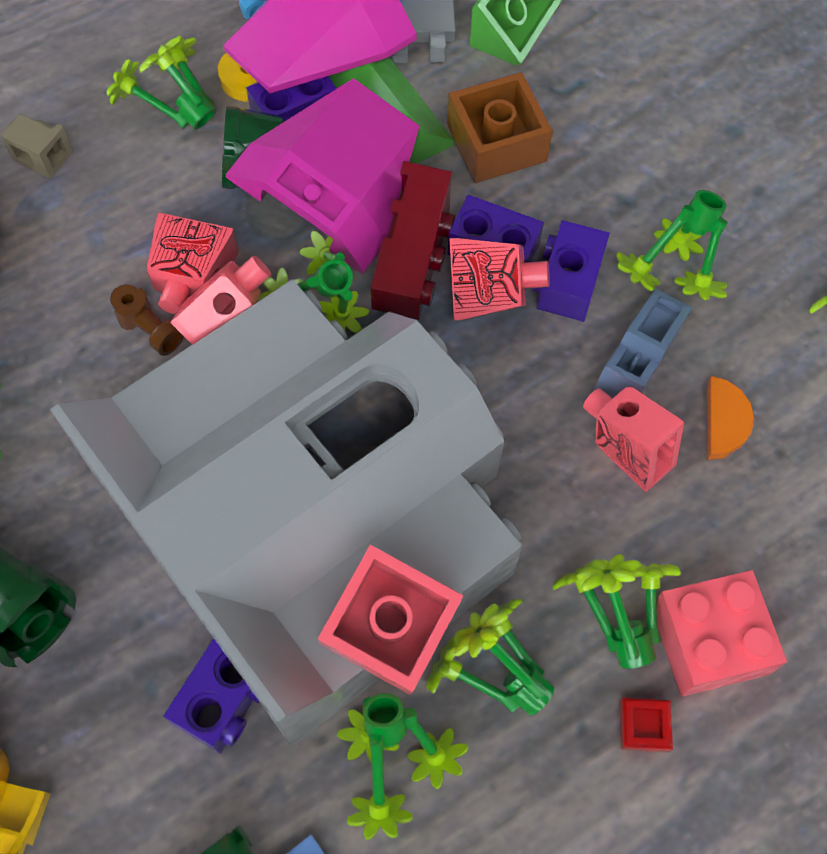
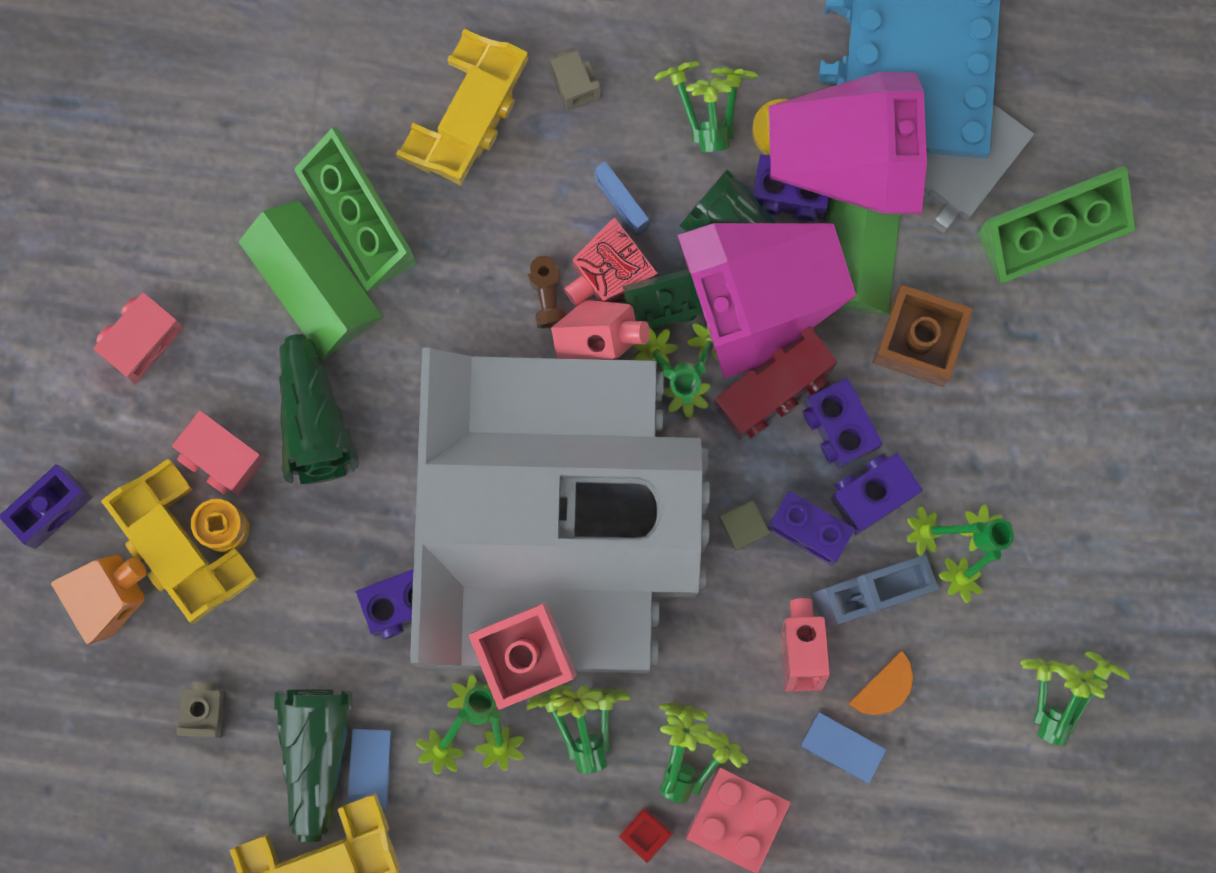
camera: 40 degrees right, 15 degrees up
(149, 200) = (621, 199): none -> medium blue tile
(263, 233) = (664, 299): none -> dark green bracket
(491, 277) = (805, 458): coral torso -> none
(491, 378) = (744, 525): none -> olive tile
(545, 335) = (810, 528): none -> dark purple brick
(740, 496) = (843, 747): none -> medium blue tile

